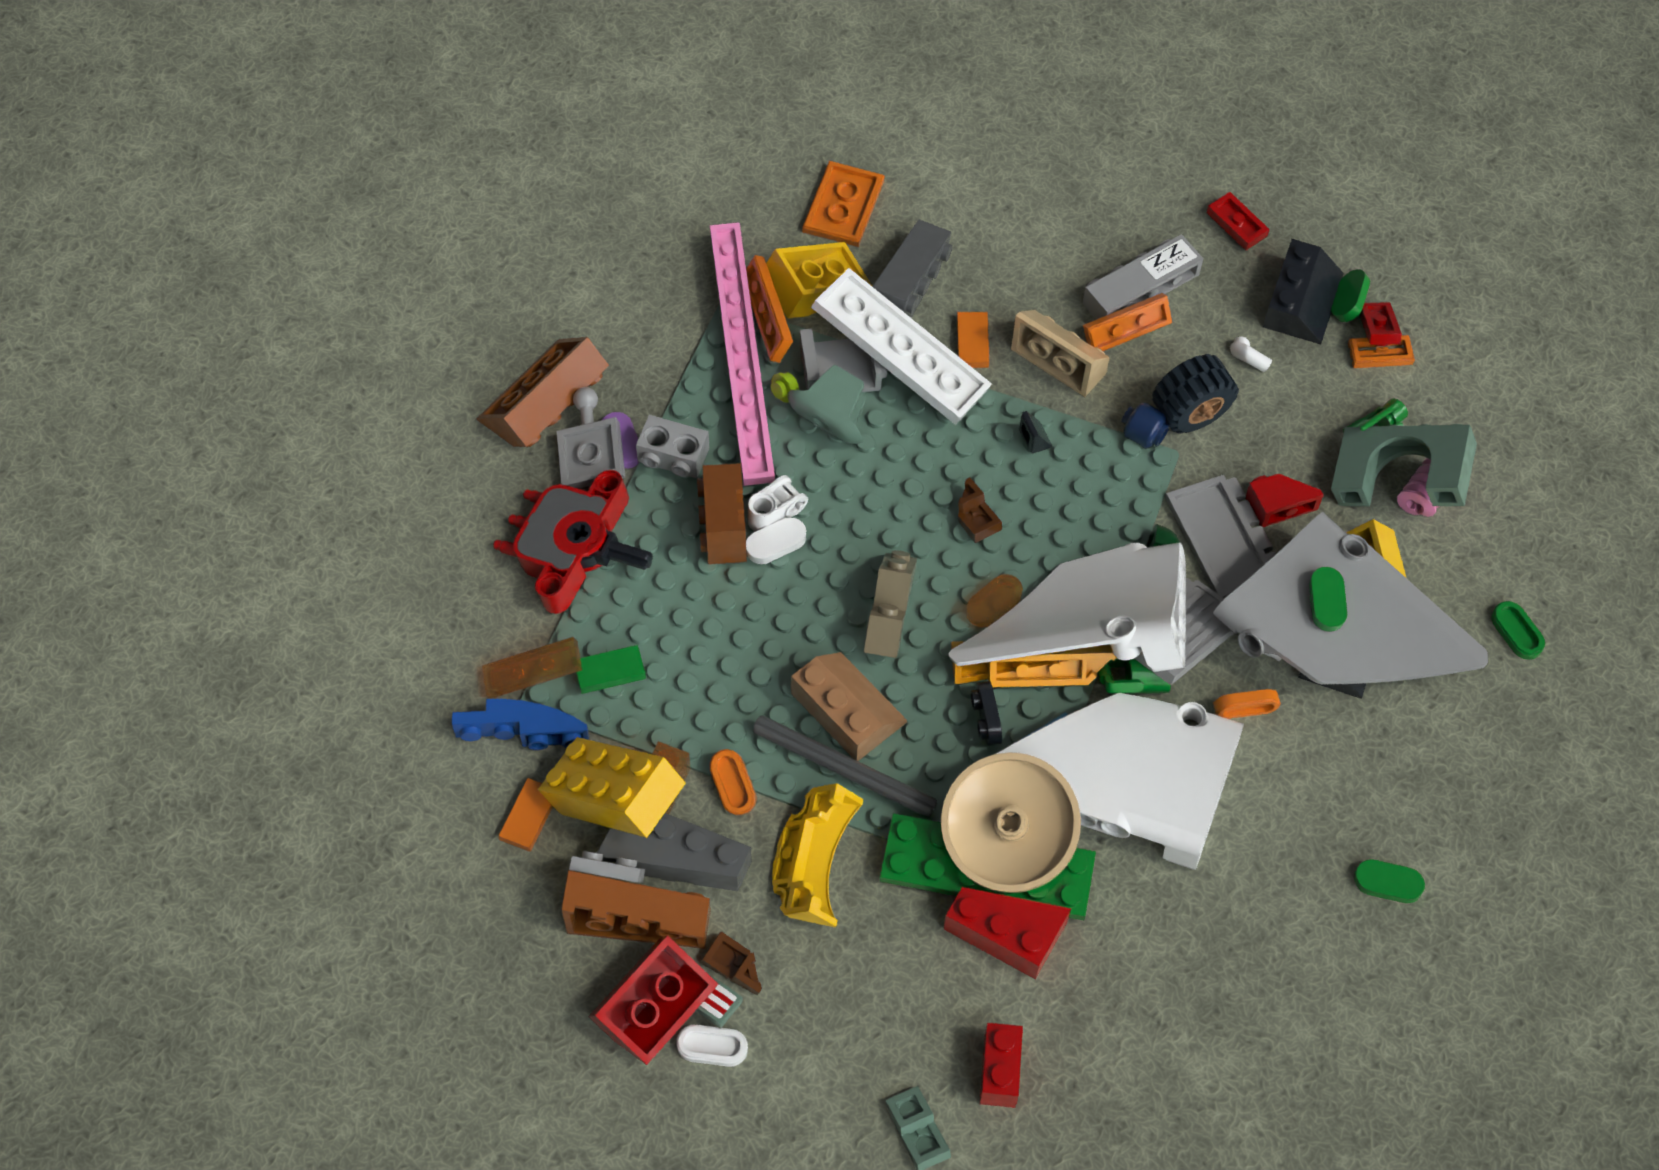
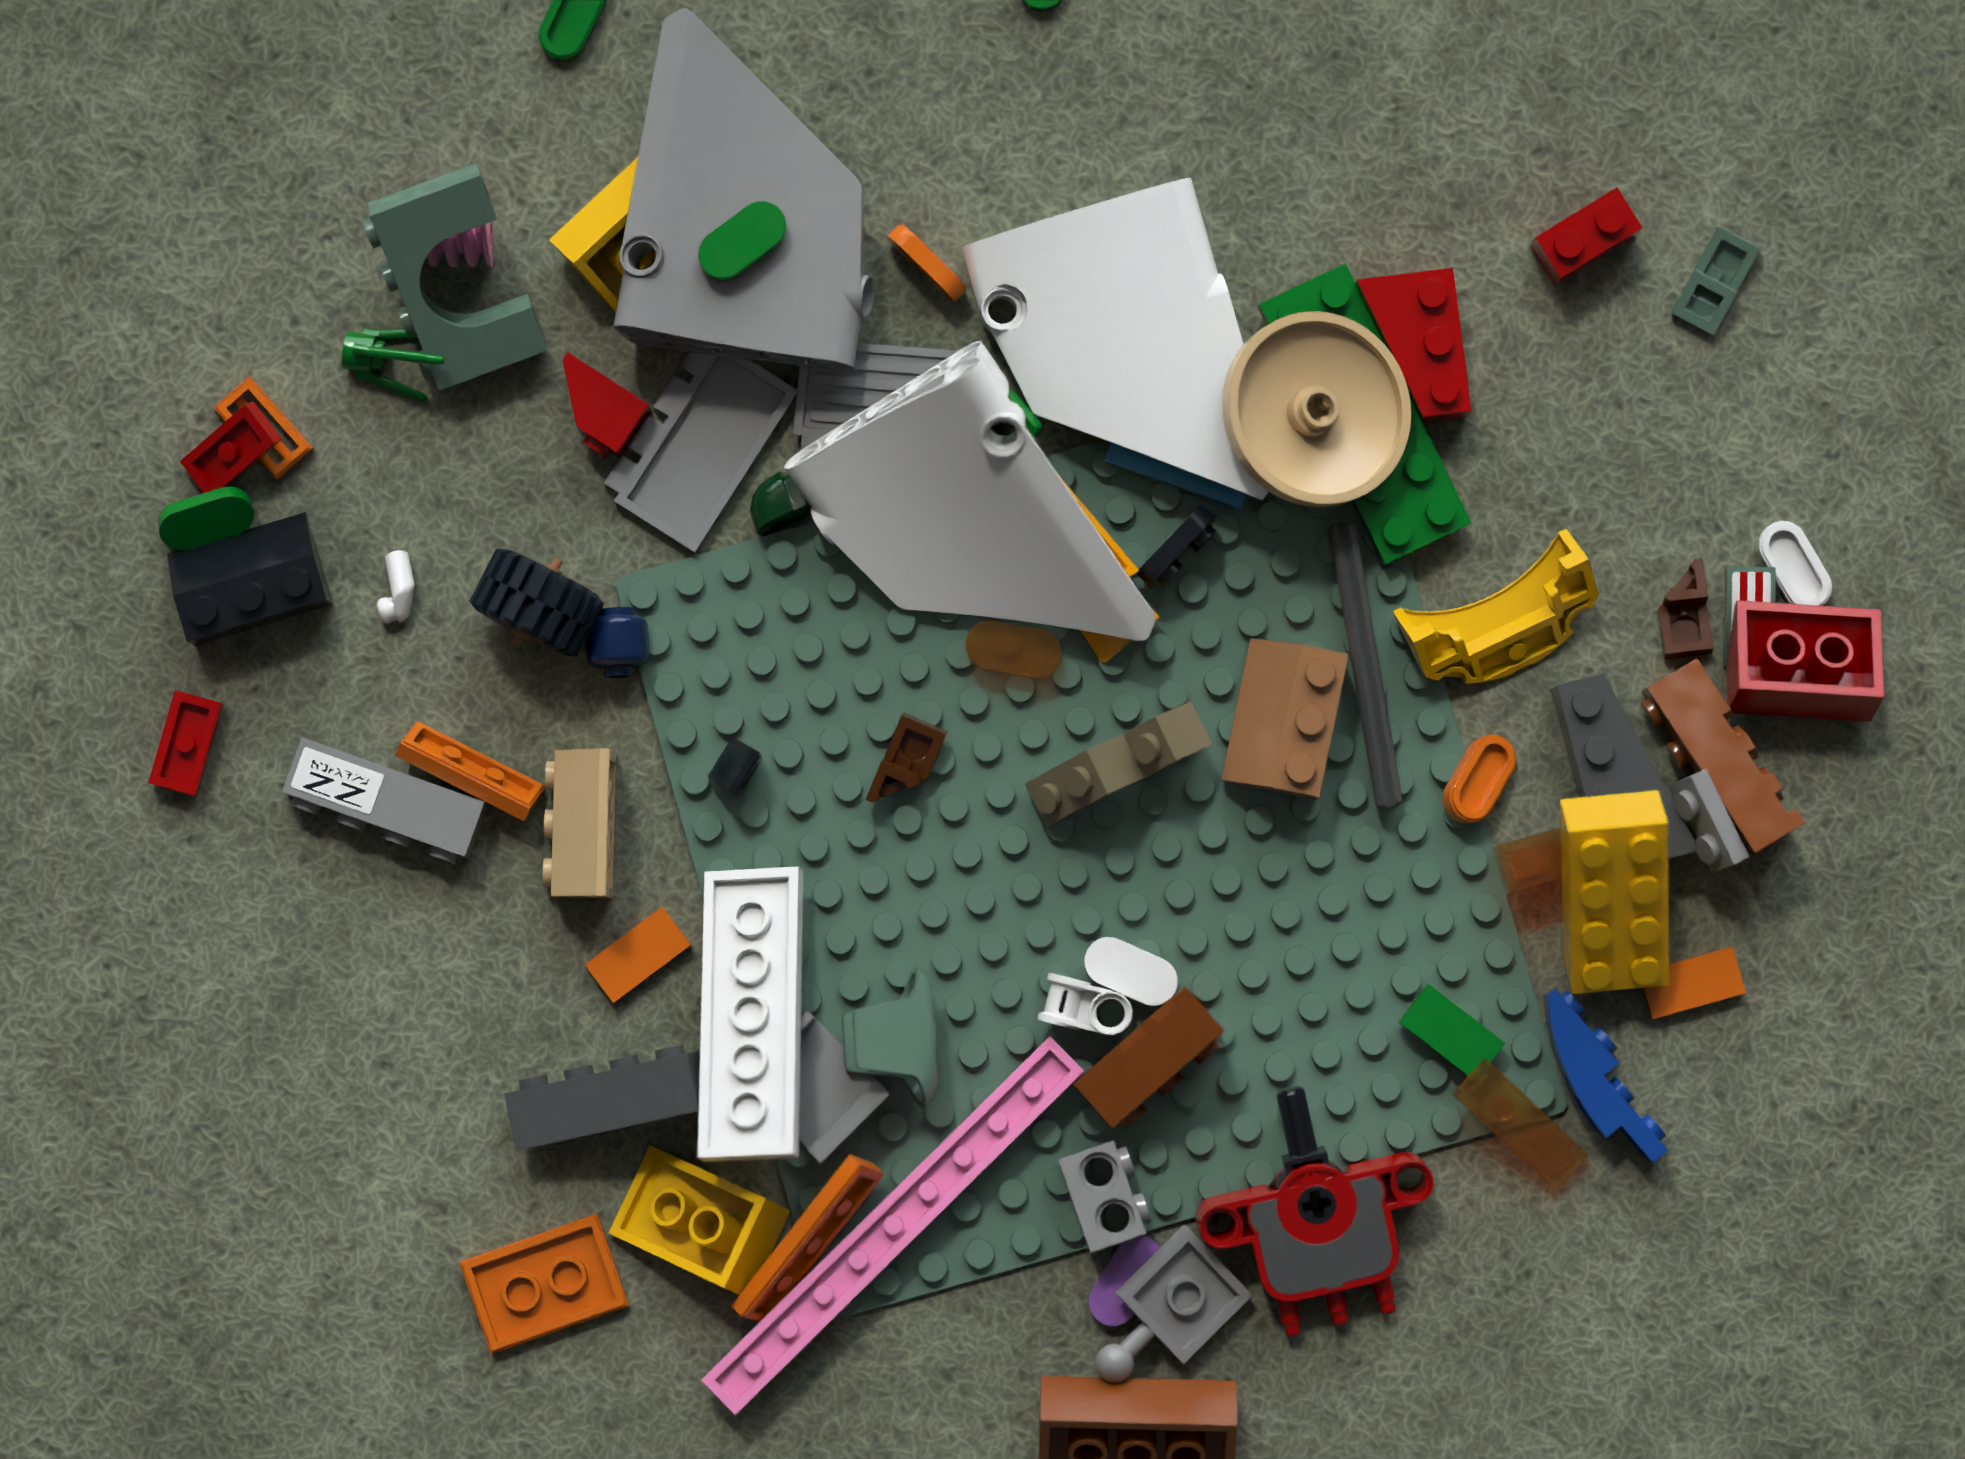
camera: 125 degrees left, 25 degrees up
(781, 384) = (907, 1127): lime plate -> none

